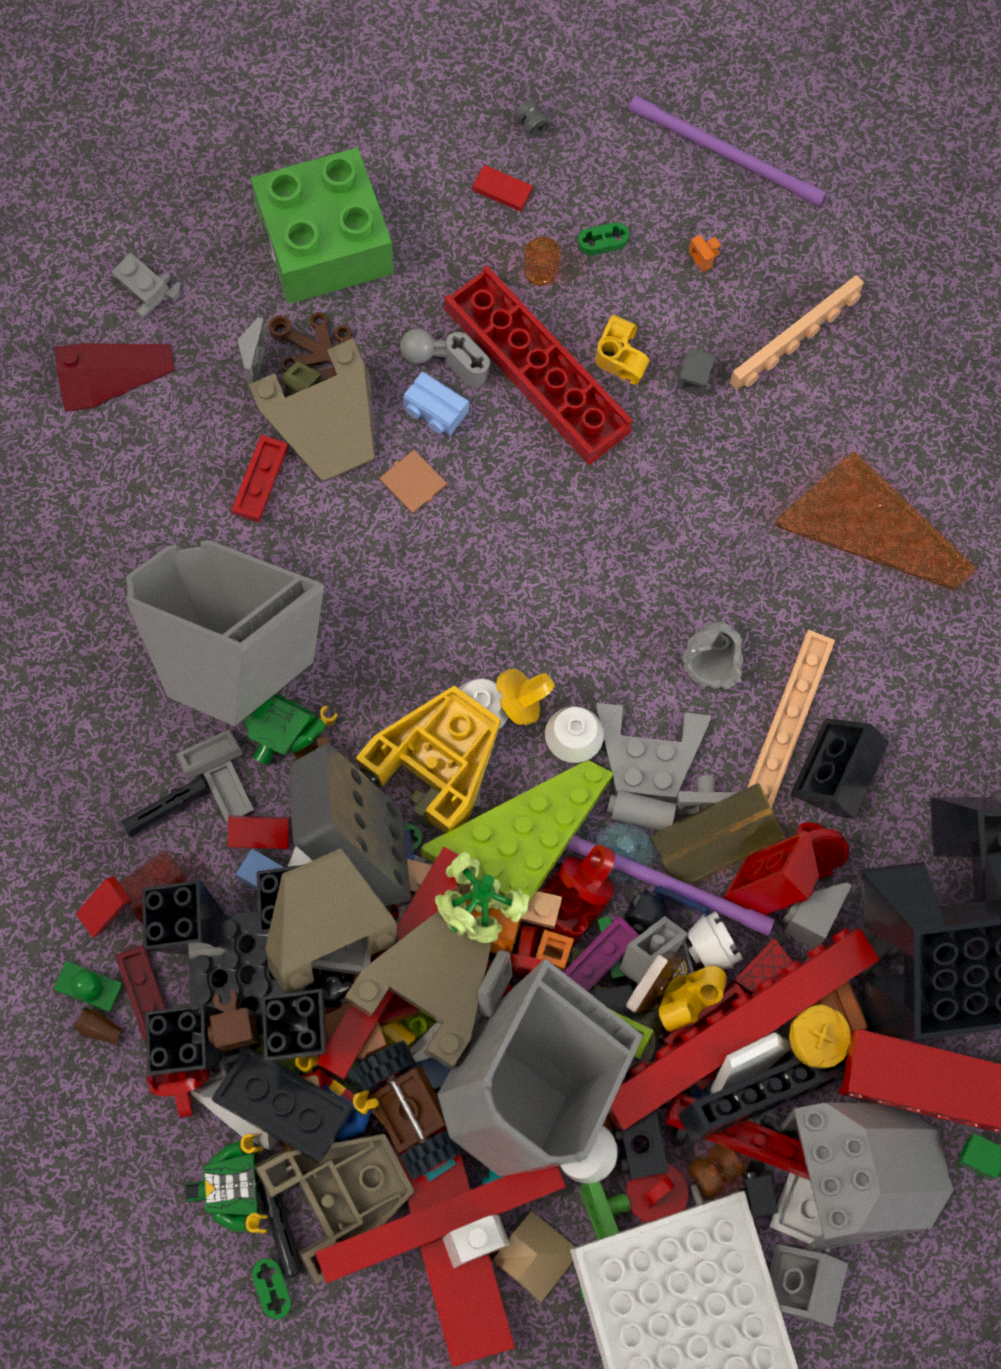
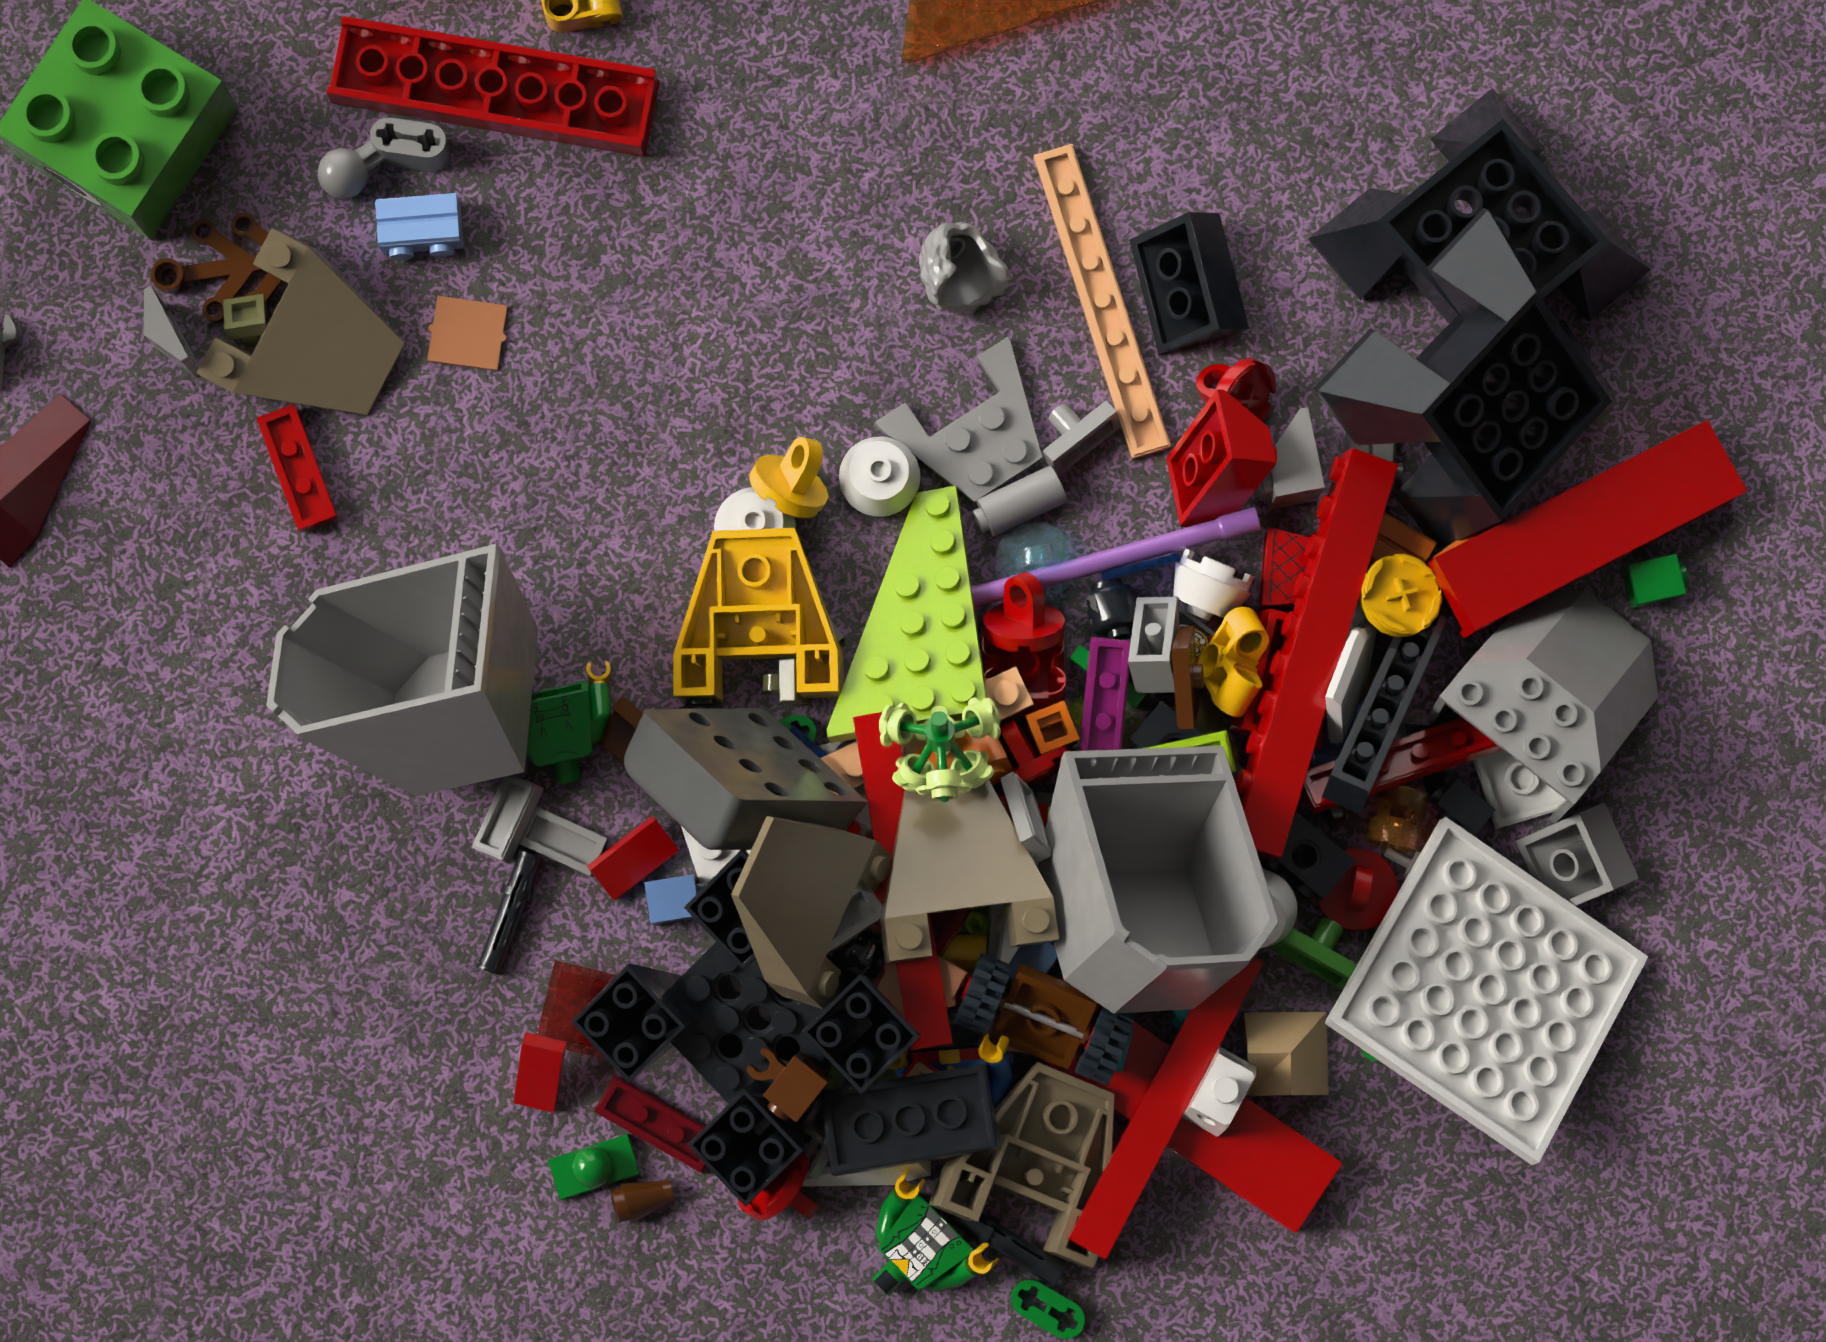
camera: 35 degrees left, 10 degrees up
(718, 835) = (1121, 464): clear yellow tile -> none

